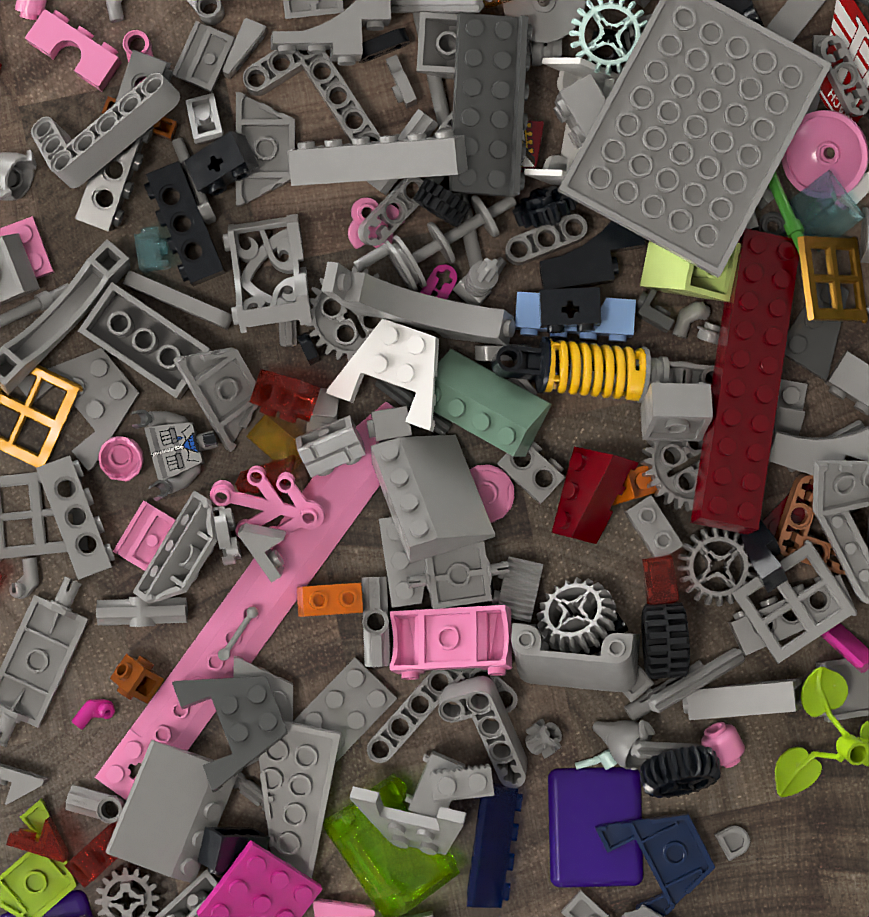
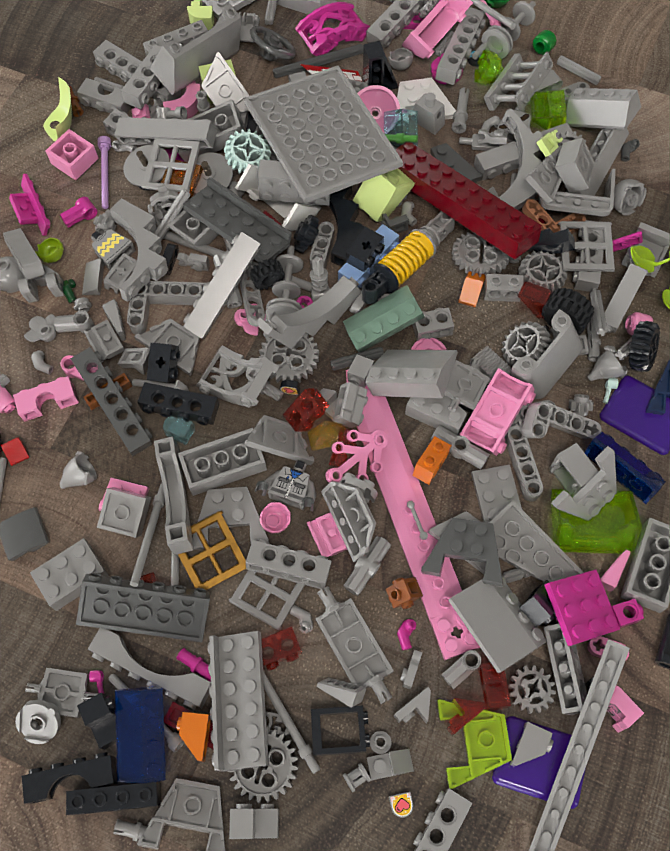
camera: 55 degrees left, 20 degrees down
(46, 747) = (409, 674): none -> light grey plate
(108, 135) = (102, 401): light grey beam -> none
(178, 300) = (216, 431): light grey beam -> none
(259, 541) = (376, 472): light grey slope -> none
(397, 357) = (329, 341): white wing -> none
(461, 783) = (586, 444): light grey brick -> none
(589, 492) = (464, 300): dark red wedge -> none
(676, 411) = (453, 233): light grey container -> none
(709, 332) = (422, 208): light grey plate -> none
(830, 245) = (436, 138): pearl gold window -> none

